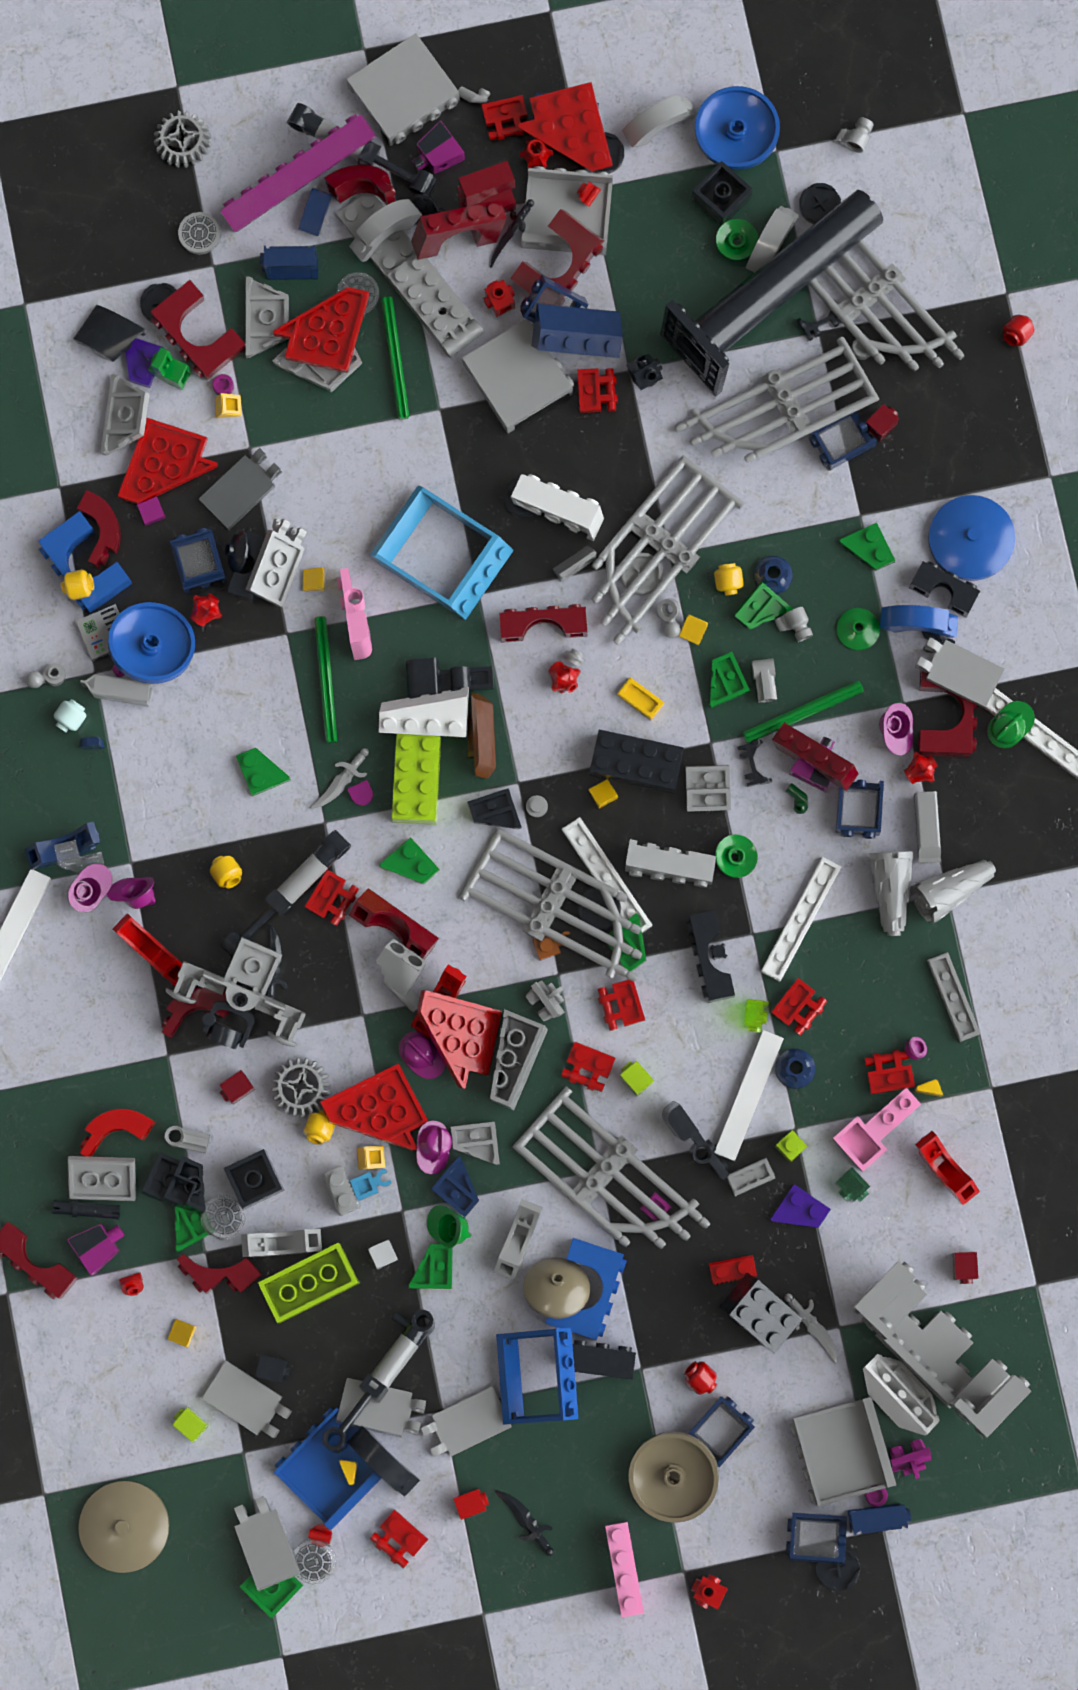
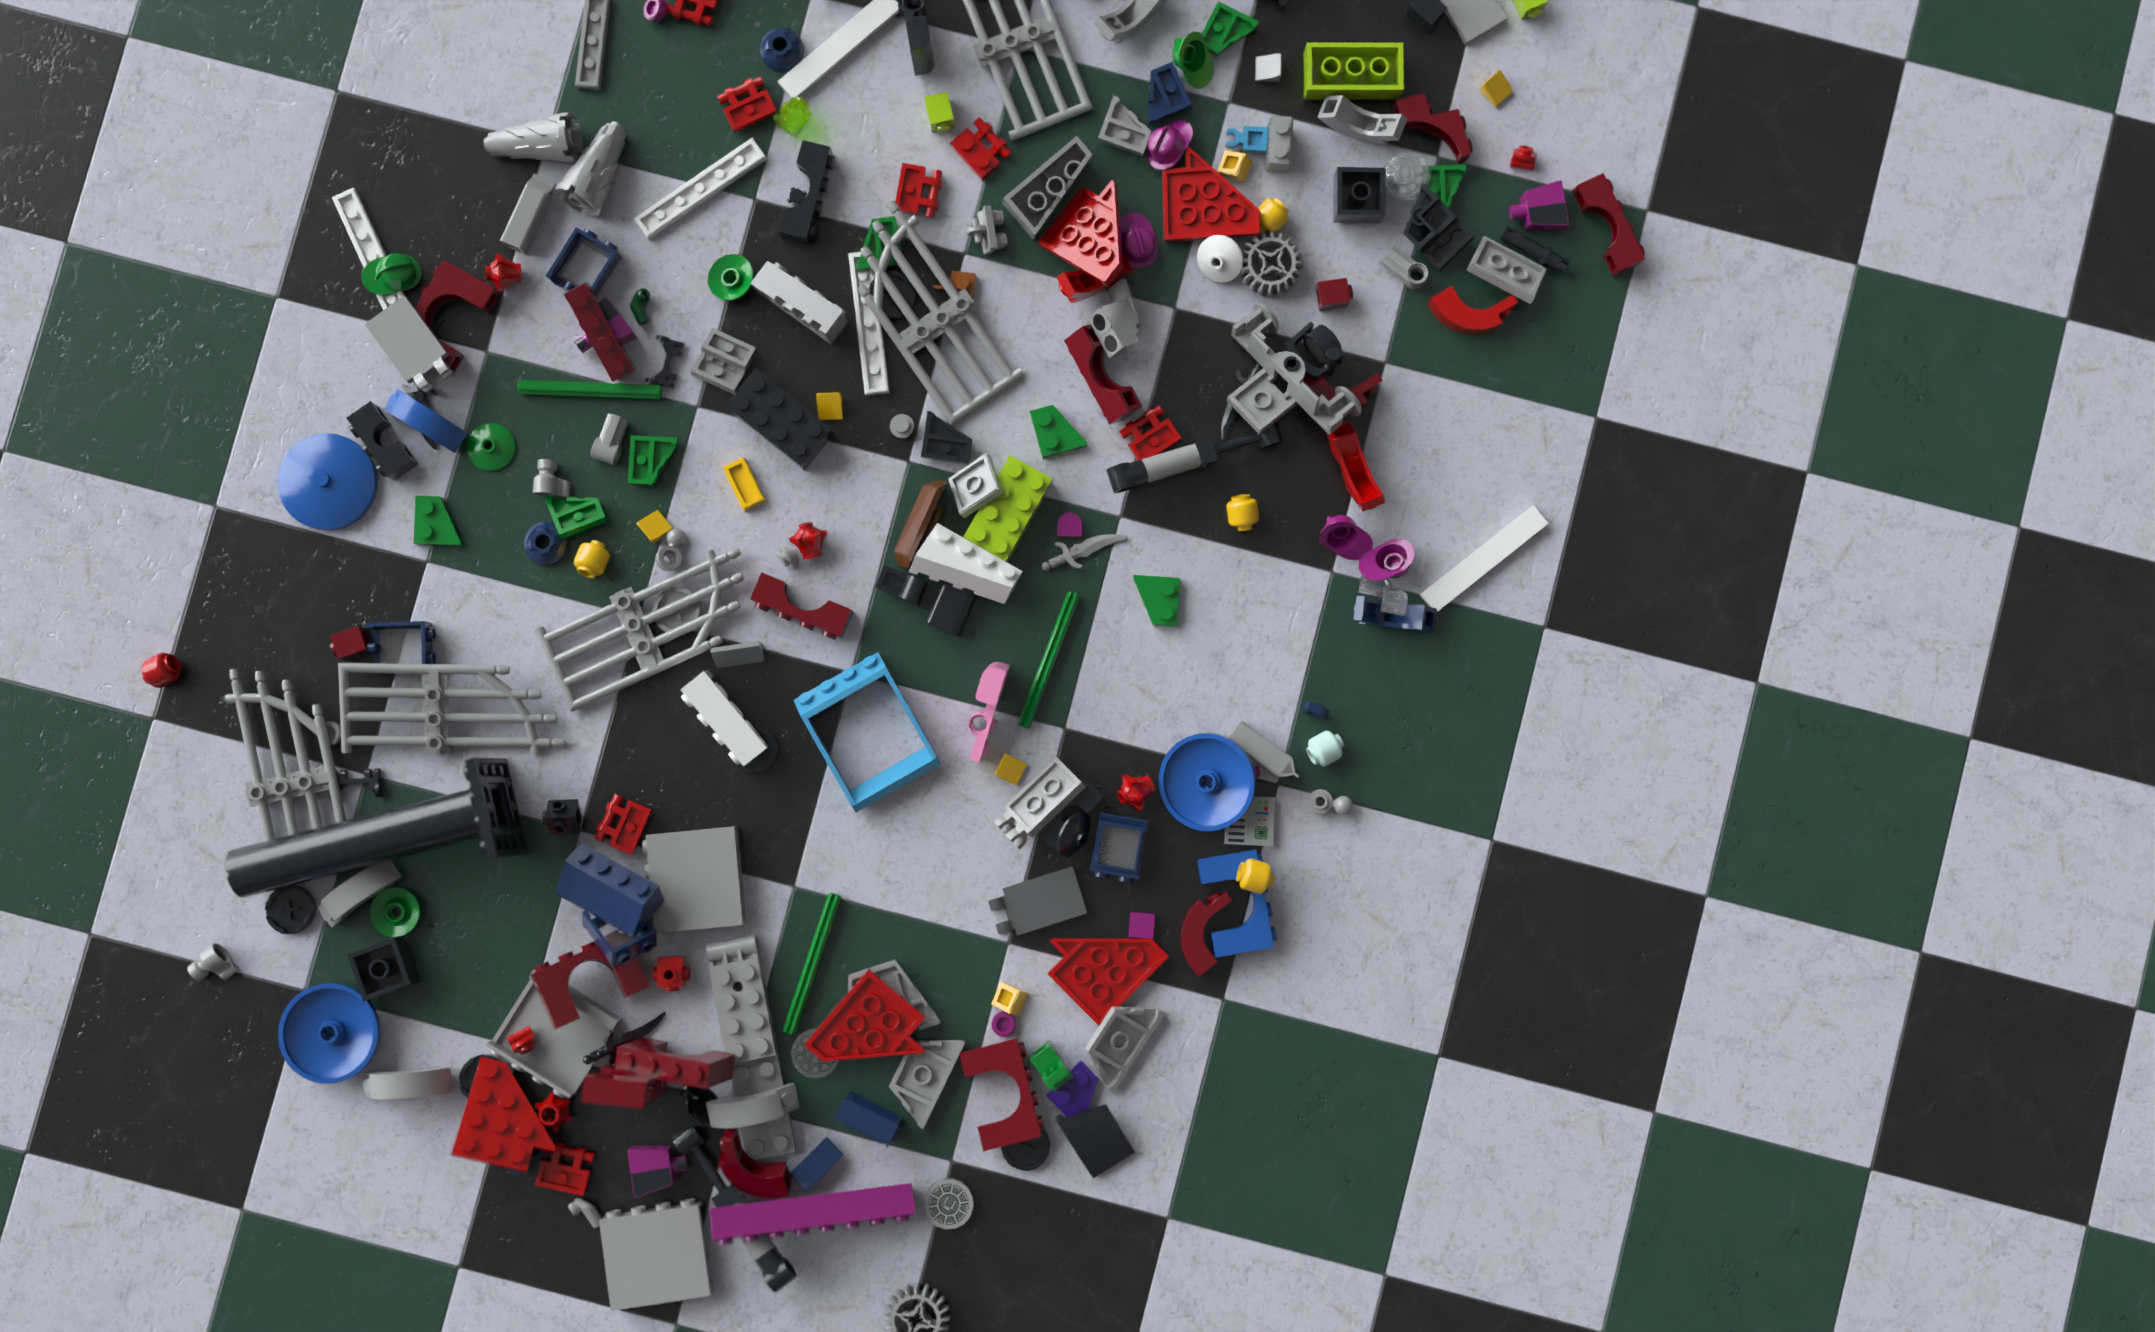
camera: 165 degrees left, 5 degrees up
(344, 1069) = (1226, 251): none -> white dish
(451, 784) = (975, 485): none -> light grey tile
(897, 728) = (505, 323): magenta piece -> none

